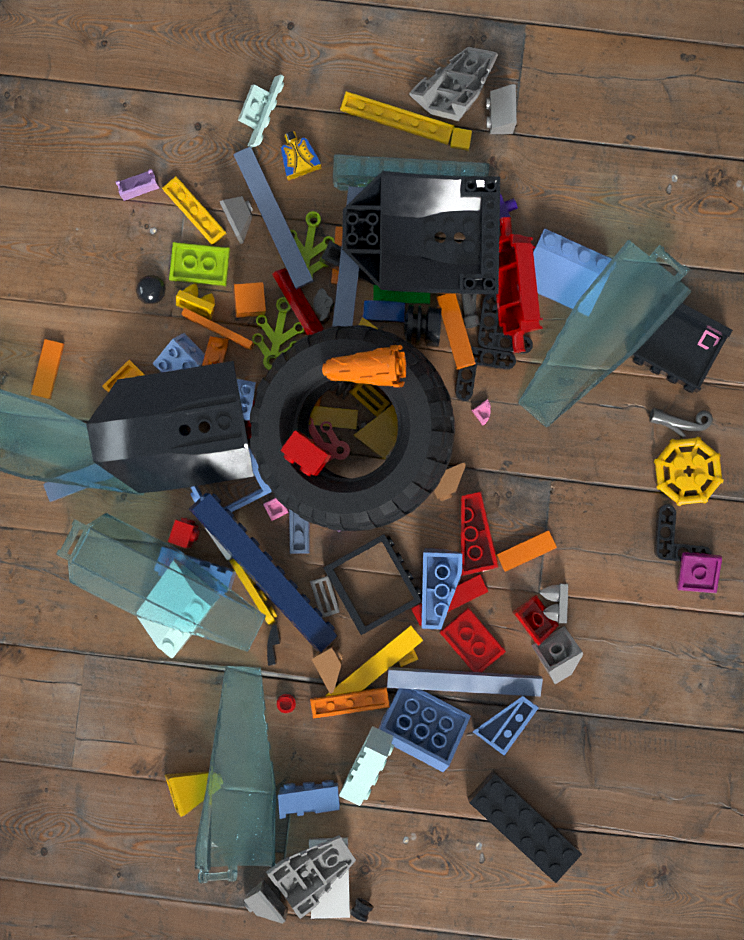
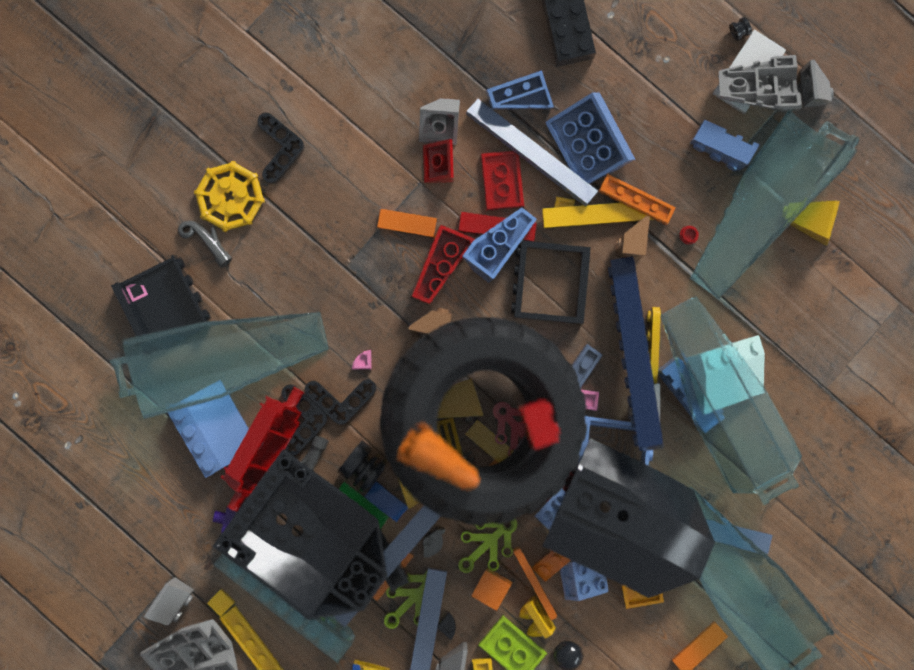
camera: 145 degrees left, 0 degrees up
(184, 533) = (679, 431): red brick -> none
(264, 246) = (448, 626): none -> black tile
(274, 639) = (663, 293): black slope -> none
(298, 302) = (453, 557): red tile -> none
(319, 580) = (592, 315): light grey tile -> none
(367, 766) = (658, 138): light aqua wedge -> none
(456, 331) = (338, 443): orange tile -> none
(558, 594) = (405, 170): light grey tile -> none
(699, 572) = (279, 108): magenta tile -> none

